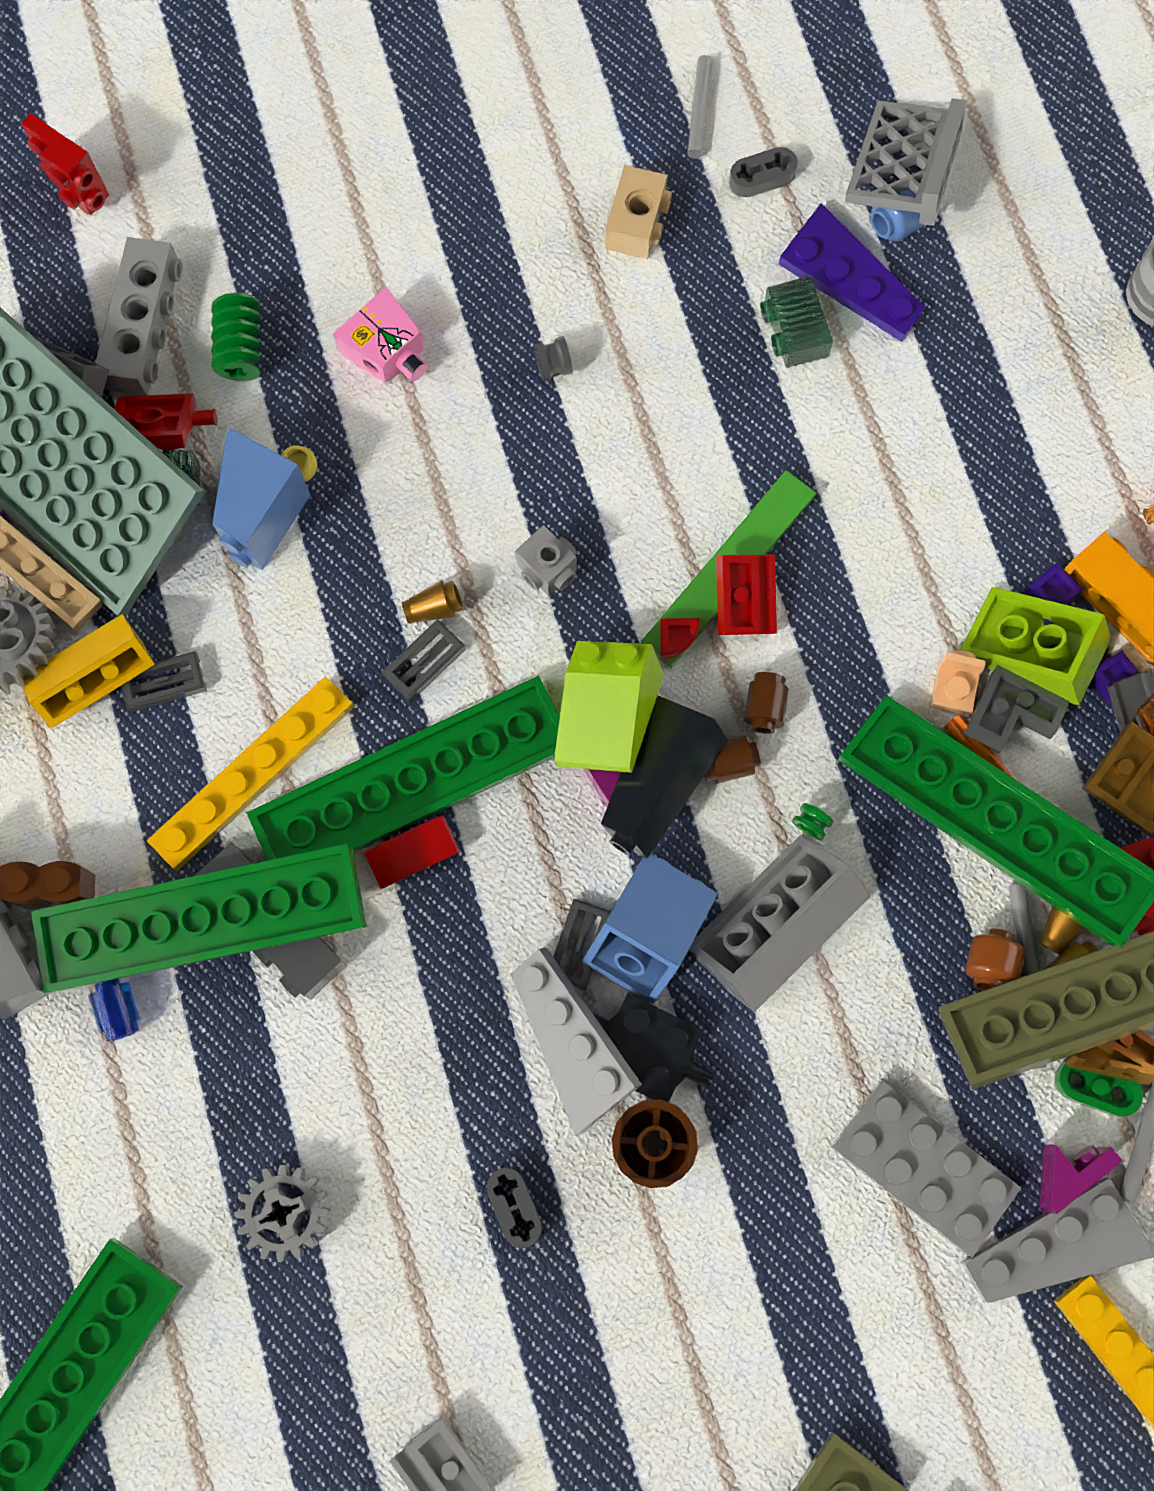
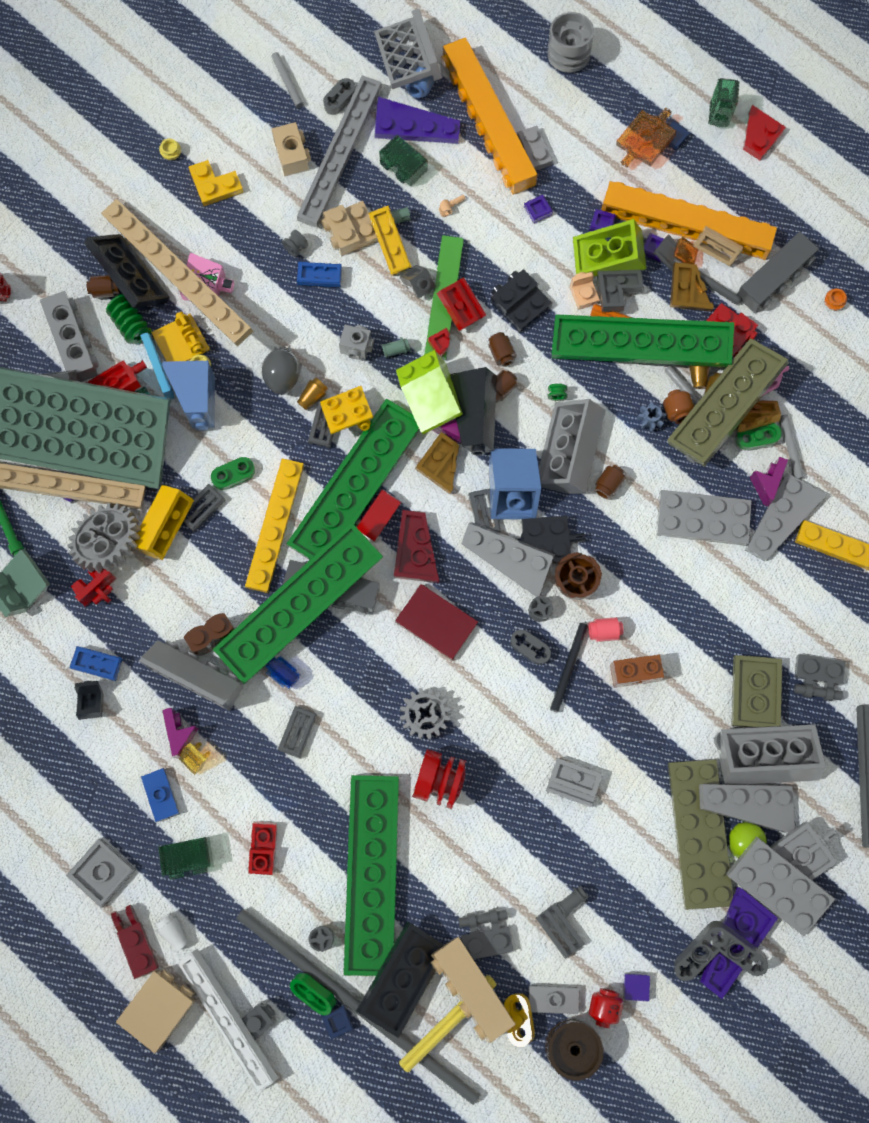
camera: 35 degrees left, 0 degrees up
(109, 1094) = (305, 713): none -> dark grey tile
(231, 1336) = (439, 779): none -> red wheel
(234, 268) = (102, 287): none -> reddish brown brick
(236, 415) = (157, 366): none -> medium azure tile
(239, 656) = (233, 474): none -> green plate
(279, 263) = (126, 270): none -> black plate
(294, 410) = (180, 339): none -> yellow hinge
(347, 310) = (177, 273): none -> tan plate
(395, 1075) = (436, 622): none -> dark red tile
(407, 540) = (281, 370): none -> dark grey helmet
(433, 939) = (414, 550): none -> dark red wing
(461, 118) = (170, 149): none -> light yellow plate
(464, 661) = (347, 410): none -> yellow hinge
(487, 210) = (212, 188): none -> yellow plate
(554, 1279) = (568, 668): none -> black bar
(559, 824) = (440, 462): none -> pearl gold wing
(560, 426) = (319, 274): none -> blue plate
(563, 1156) = (540, 604): none -> dark grey wheel
(605, 605) = (396, 347): none -> sand green pin
(649, 1255) = (605, 629): none -> coral brick
(652, 380) = (349, 227): none -> tan plate
(656, 1358) = (636, 671): none -> dark orange brick
(698, 433) = (389, 240): none -> yellow tile
(703, 520) = (419, 280): none -> dark grey bracket
(709, 255) = (339, 151): none -> light grey plate
(732, 401) = (401, 215): none -> sand green pin
(806, 1016) = (609, 482): none -> reddish brown brick
(819, 427) = (445, 205): none -> light nougat hand
(845, 640) = (520, 300): none -> black plate
(937, 961) = (654, 421): none -> sand blue gear
(964, 512) = (538, 209): none -> dark purple tile
(974, 325) = (489, 116): none -> light orange brick
(1018, 414) = (535, 147): none -> light grey plate

